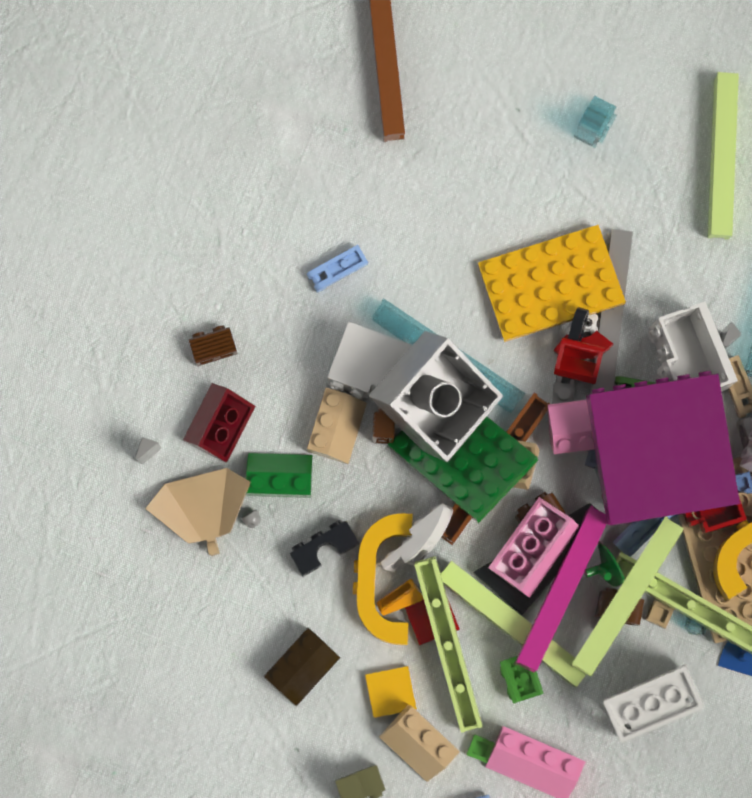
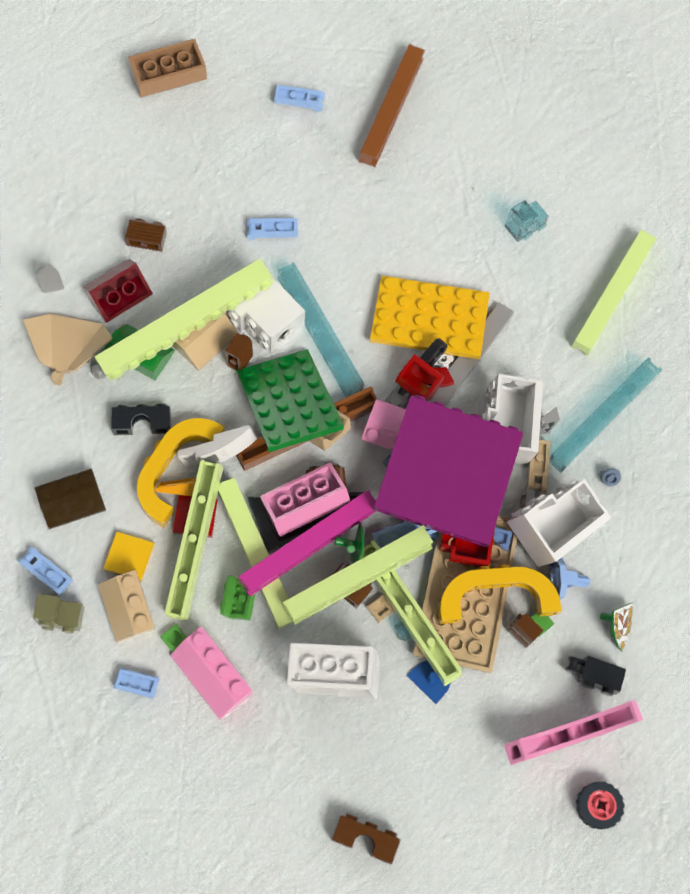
camera: 25 degrees right, 10 degrees down
(126, 142) = (167, 68): none -> medium nougat brick
(282, 100) = (299, 97): none -> light blue plate
(316, 427) = (184, 320): none -> yellowish green brick
(319, 750) = (46, 571): none -> light blue plate
(436, 395) = (288, 337): light grey brick -> none

